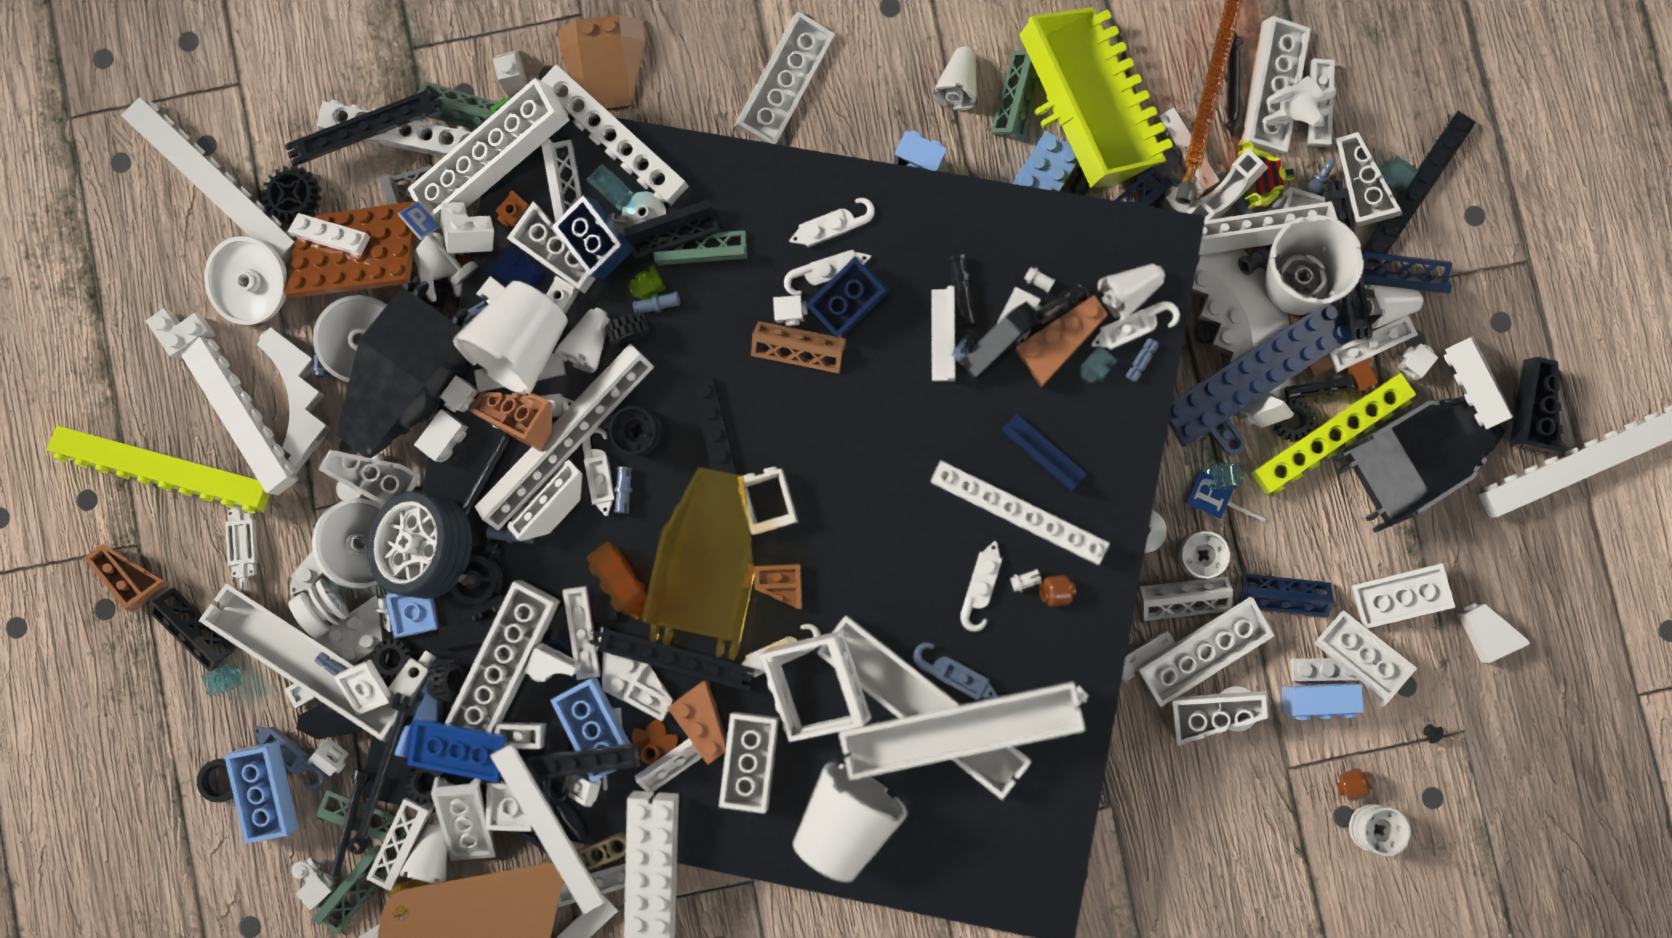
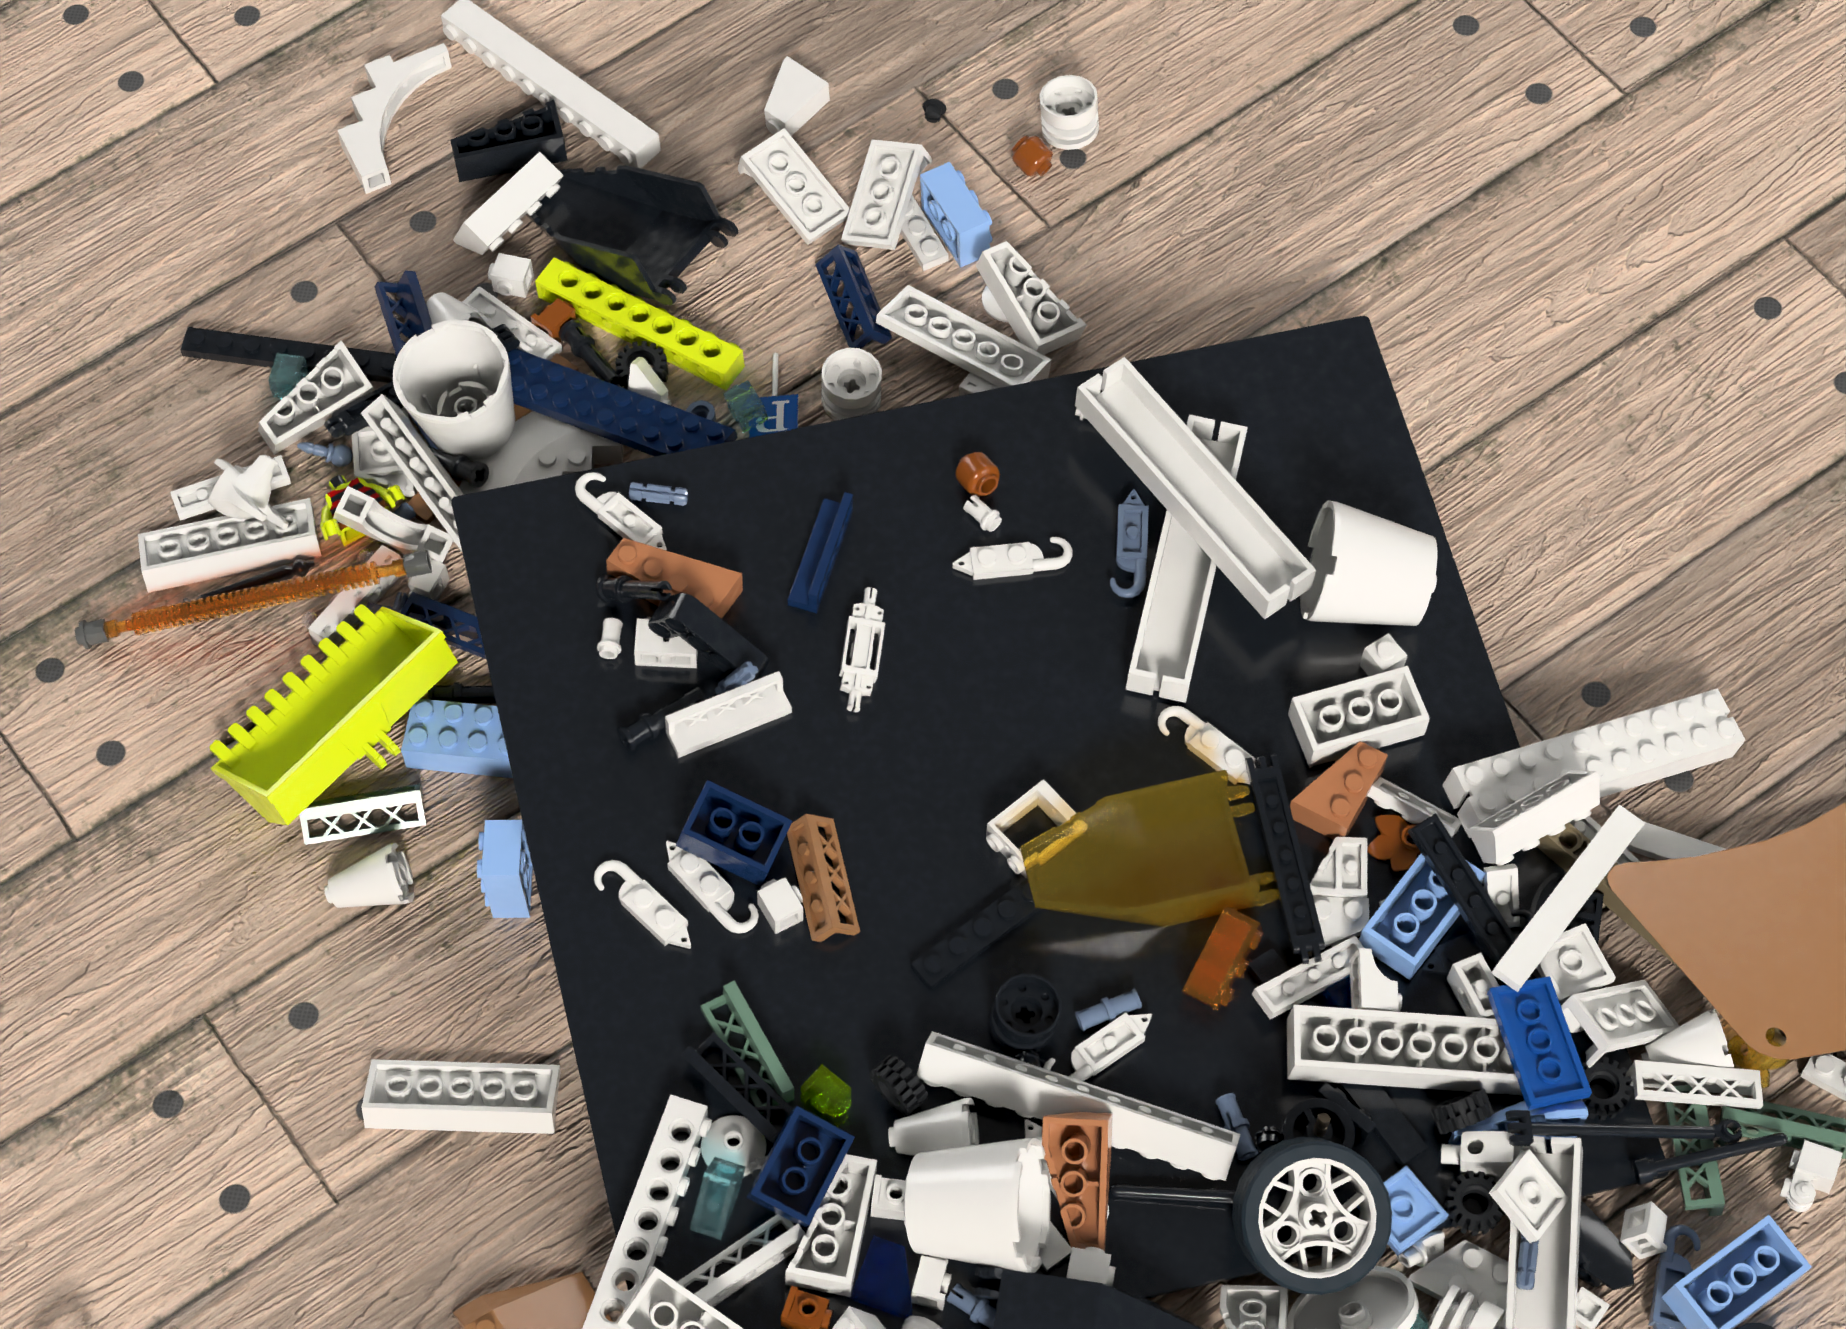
camera: 115 degrees left, 25 degrees down
(441, 436) = (1155, 1270): white brick -> none
(548, 504) = (1171, 1086): white wedge -> none
(612, 836) = (1535, 816): none -> white slope
(656, 303) = (847, 1072): sand blue pin -> none
(780, 582) = (1124, 768): medium nougat wing -> none
(785, 803) = (1382, 656): none -> white brick
(847, 676) = (1269, 646): white window -> none
(935, 435) = (858, 677): none -> white piece
(1019, 513) = (906, 549): white brick -> none
(1097, 364) = (687, 535): clear light blue brick -> none
(1129, 289) = (581, 531): white cone -> none
(1186, 594) = (901, 377): white fence -> none
(1620, 324) = (376, 107): none -> white arch

